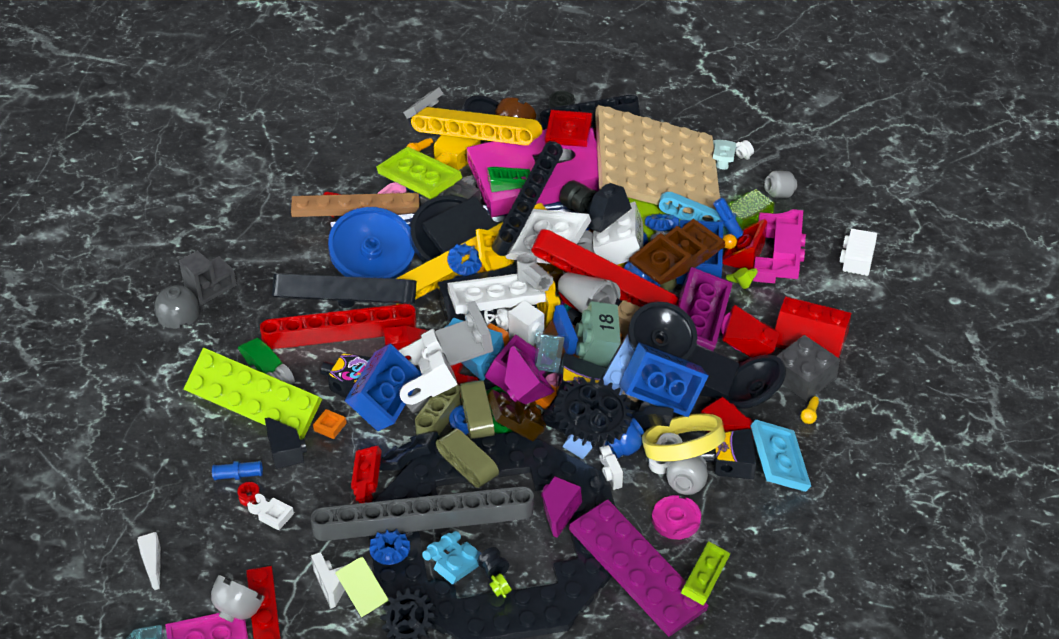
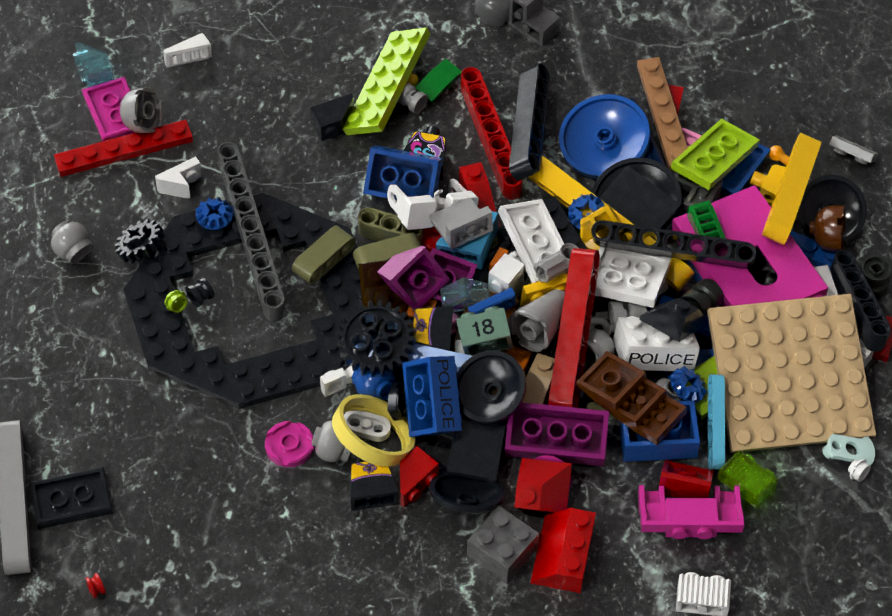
camera: 80 degrees right, 10 degrees up
(237, 470) = (298, 91): blue pin -> none
(246, 488) = (268, 108): red bush -> none
(271, 513) = (253, 126): white plate -> none
(329, 424) = (361, 147): orange plate -> none
(362, 586) = (167, 200): yellowish green slope -> none
(366, 473) = (303, 185): red hinge -> none
(419, 445) = (337, 213): black tile -> none
(459, 561) = (200, 265): medium azure plate -> none
(560, 503) = (273, 334): magenta slope -> none
(569, 128) = (800, 269): red plate -> none
(637, 567) = (215, 411): magenta plate -> none
(705, 573) = (214, 468): lime tile -> none
(728, 218) = (708, 447): blue axle -> none
(730, 241) = (685, 458): light orange piece -> none
(743, 277) = (637, 478): lime piece -> none
(780, 184) = (801, 509): light grey head -> none
(780, 455) = (370, 523): medium azure plate -> none
(809, 414) = (440, 553): yellow piece -> none

